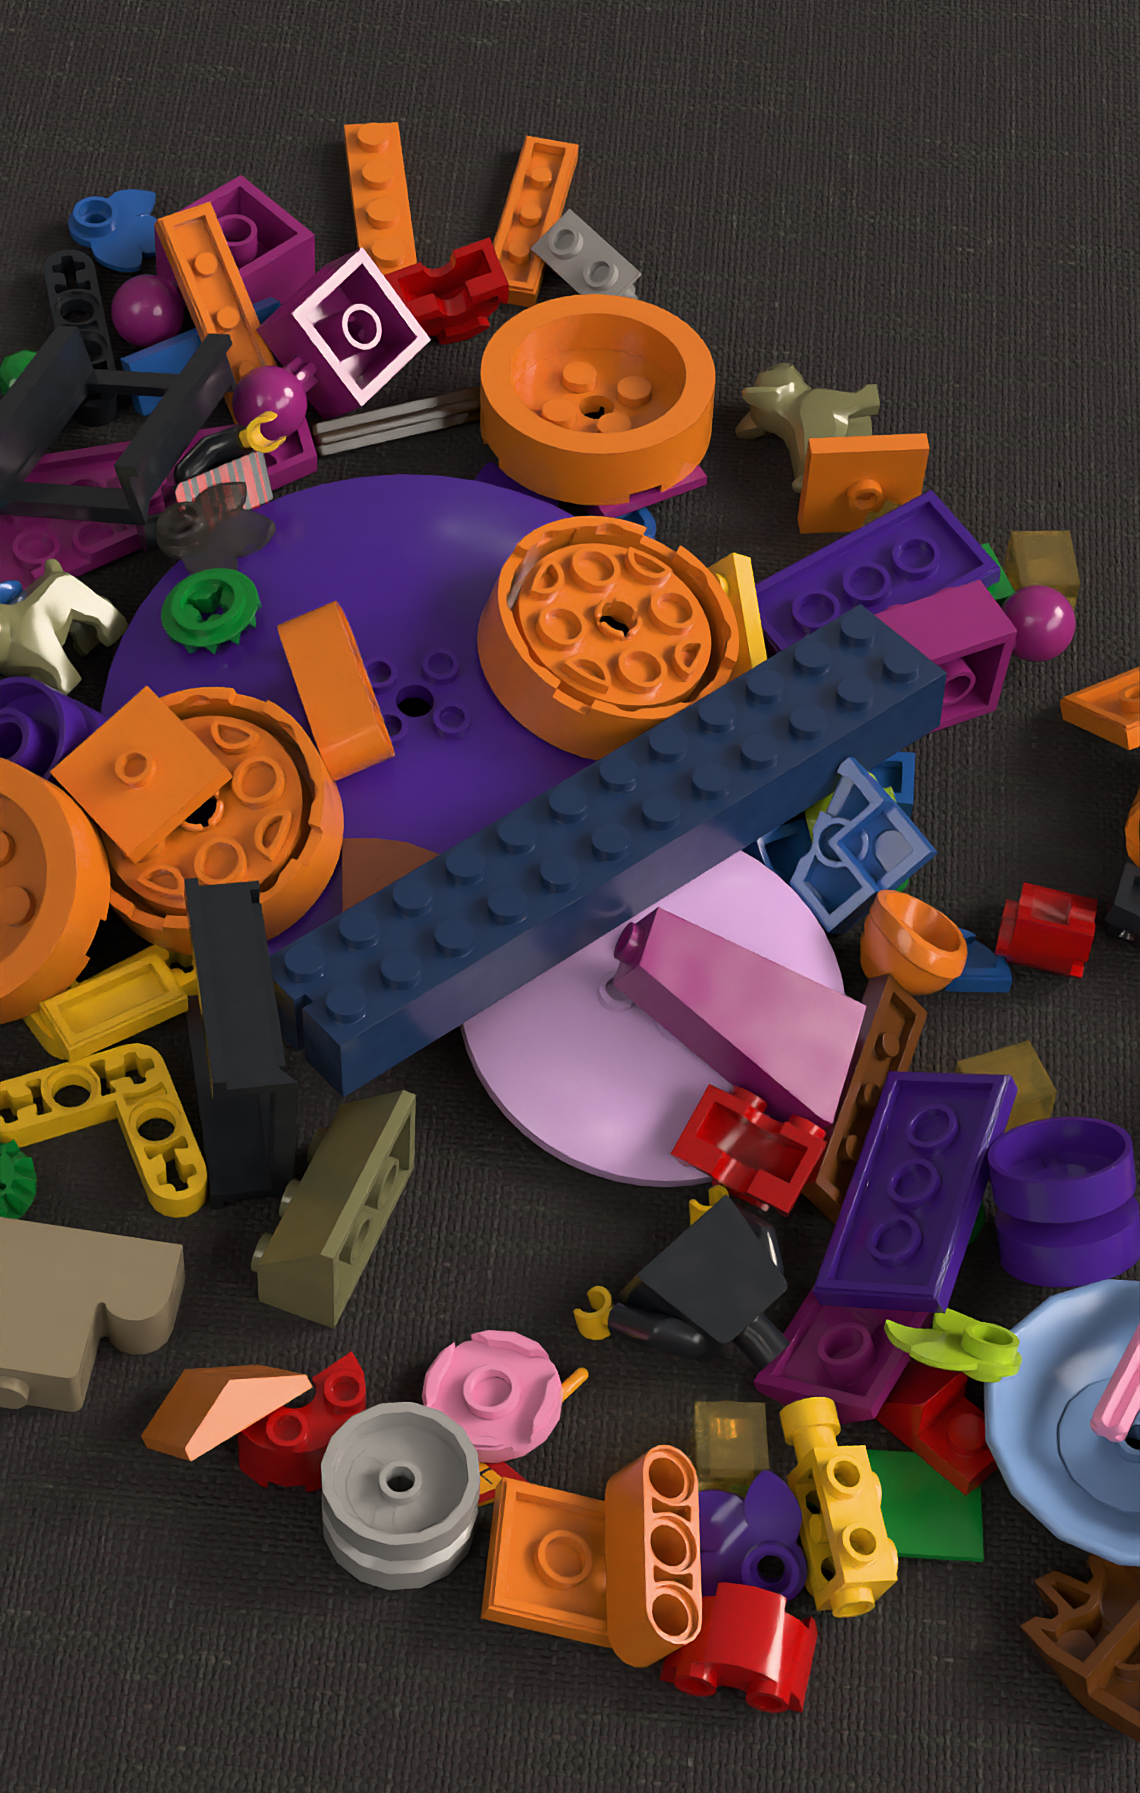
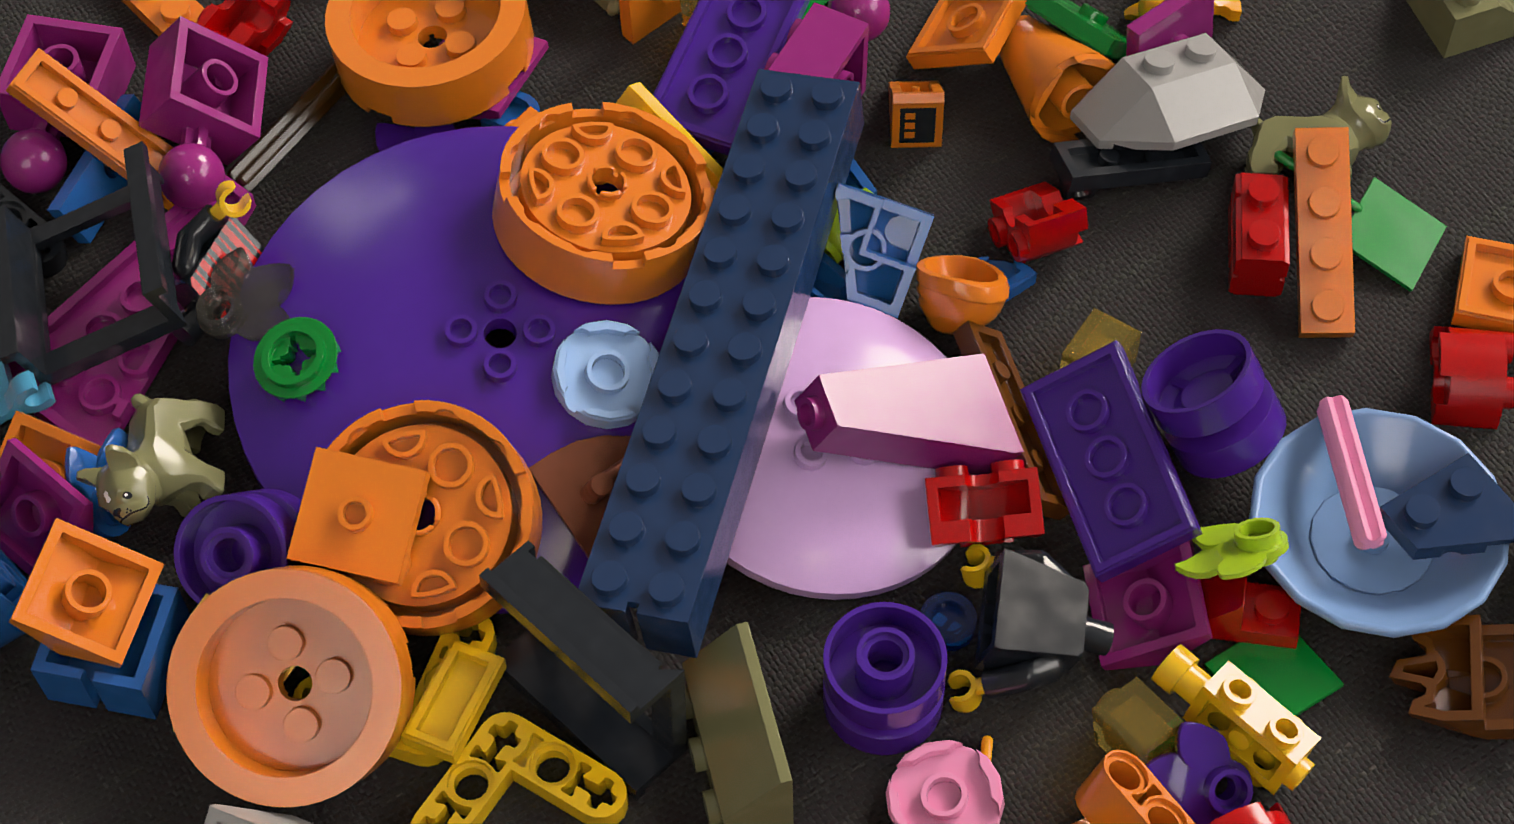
camera: 30 degrees left, 5 degrees up
(335, 691) = (447, 361): orange beam -> none
(456, 813) = (601, 393): none -> light blue tile
(519, 1243) = (884, 678): none -> dark purple wheel
(636, 1239) = (953, 617): none -> clear blue tile
(1019, 756) = (916, 113): none -> orange slope

